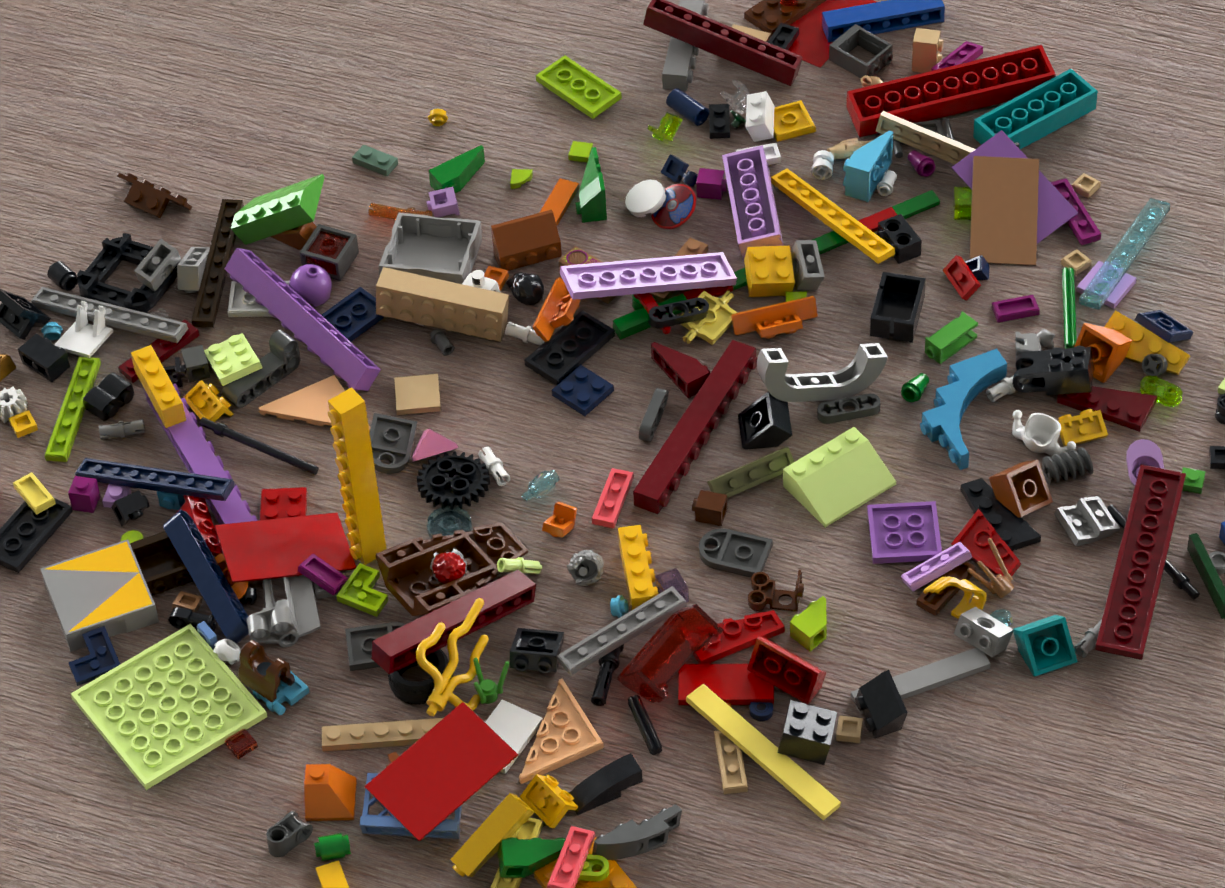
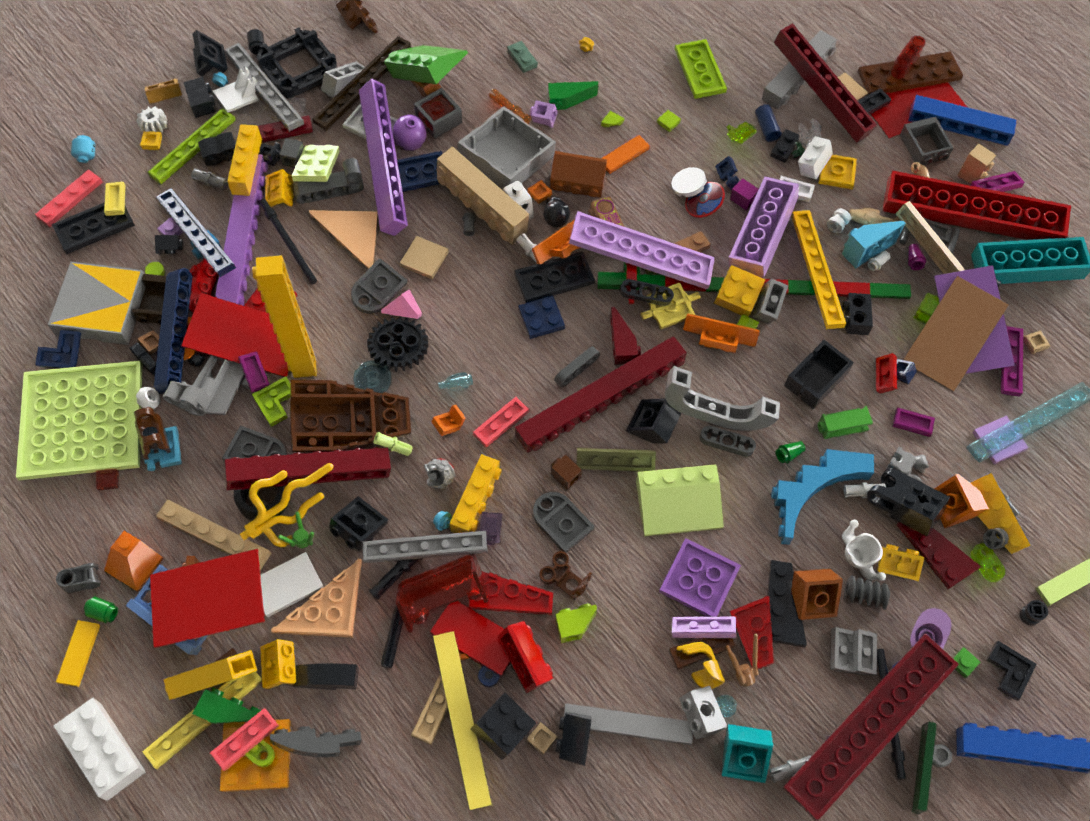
camera: 25 degrees right, 15 degrees up
(84, 494) = (147, 217): magenta brick -> none
(157, 265) = (311, 65): light grey brick -> none
(207, 634) = (144, 376): medium blue tile -> none
(448, 566) = (337, 418): red piece -> none
(494, 465) = (435, 347): white pin -> none
(592, 192) = (652, 158): green wedge -> none
(1069, 307) = (956, 446): green axle -> none
(1077, 261) = (987, 406): tan tile -> none
(1164, 326) = (1024, 506): dark blue tile -> none

